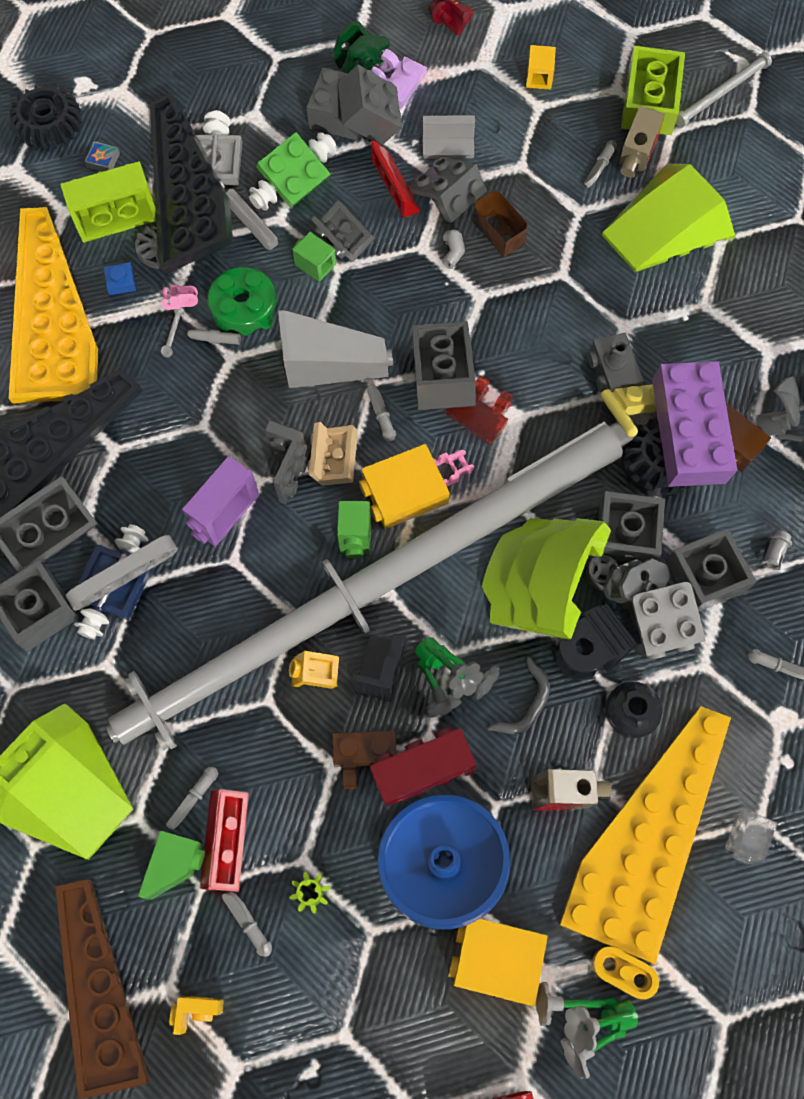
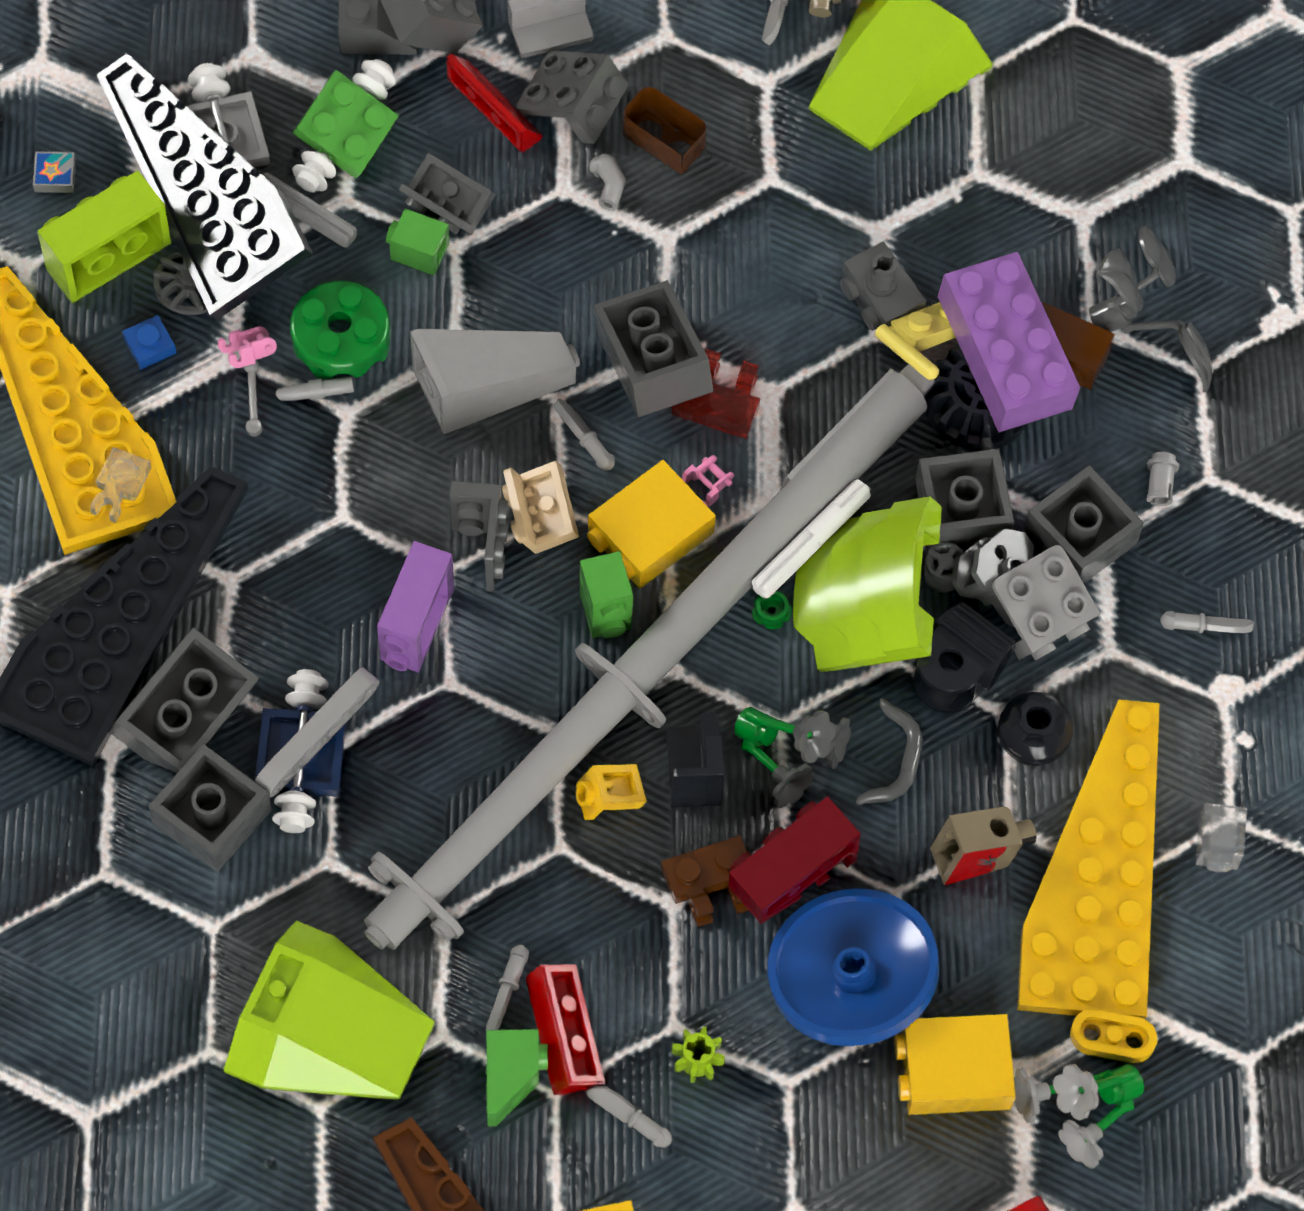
camera: 20 degrees left, 5 degrees down
(60, 361) = (119, 478): none -> clear plate
(473, 563) = (776, 601): none -> green plate
(511, 527) = (811, 538): none -> white axle

